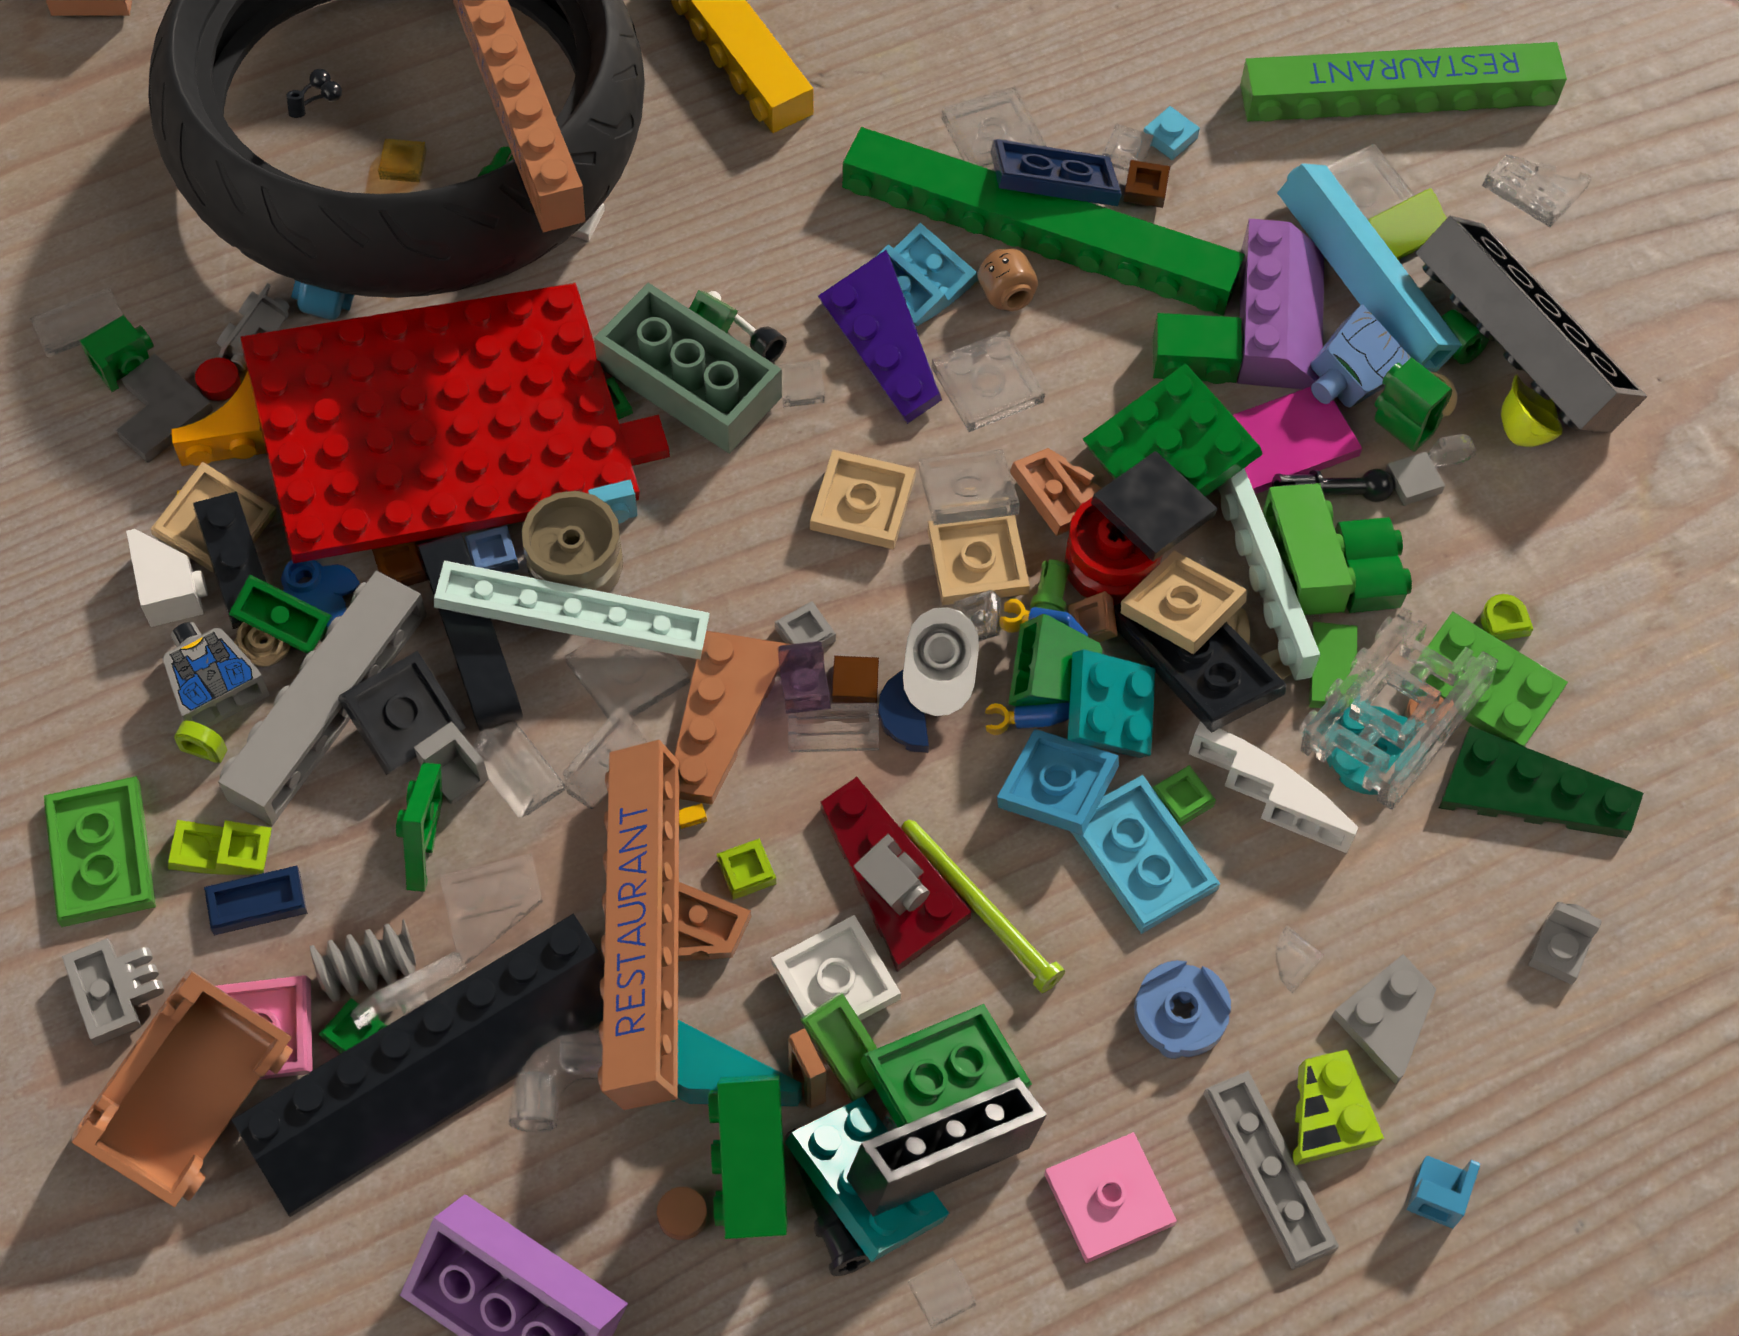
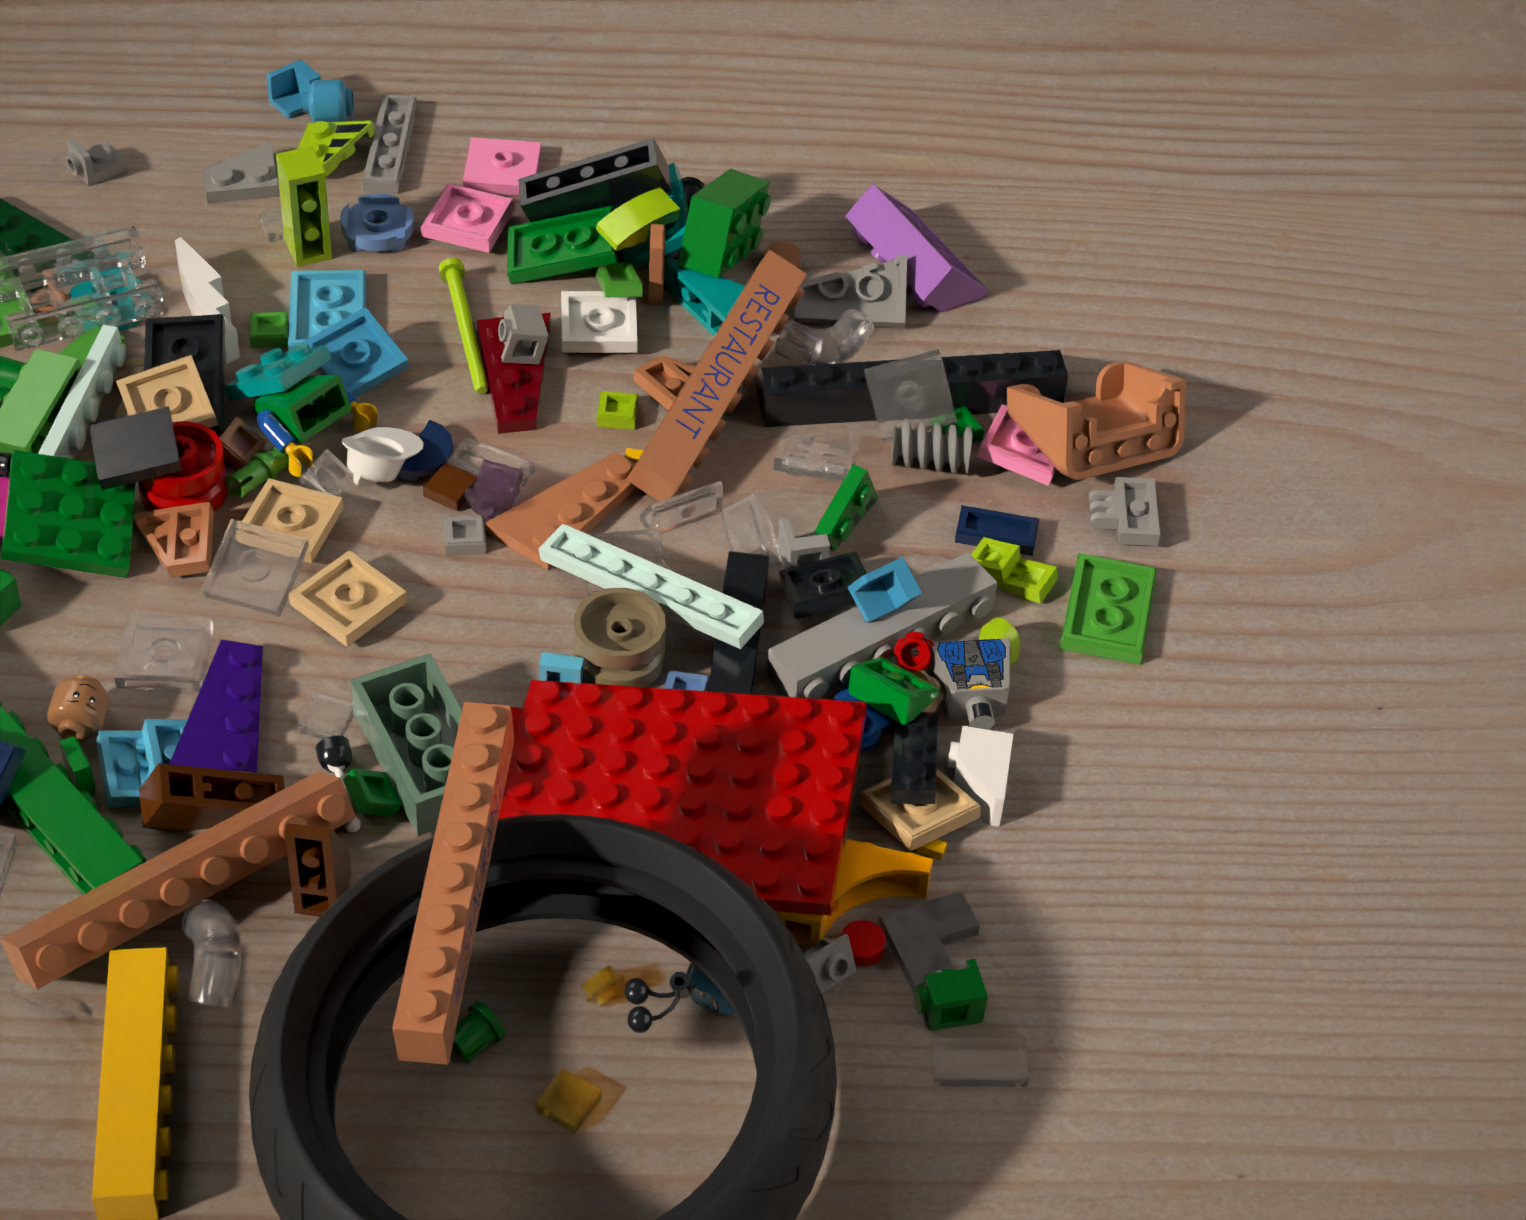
camera: 155 degrees left, 15 degrees down
(276, 664) = (904, 656): none -> red plate
(326, 685) = (884, 590): none -> dark azure panel
(553, 1164) = (873, 290): none -> light grey wing
(696, 202) = (316, 867): none -> reddish brown slope
(741, 133) = (215, 953): none -> clear cylinder
(800, 170) = (172, 881): none -> nougat brick
(841, 247) = (200, 797): none -> reddish brown slope
(858, 1106) = (632, 220): none -> lime slope
(968, 235) = (77, 765): none -> green tile
(1086, 1073) = (468, 218): none -> bright pink plate
(1249, 921) = (304, 206): none -> lime brick
(1382, 1178) = (328, 101): none -> dark azure head

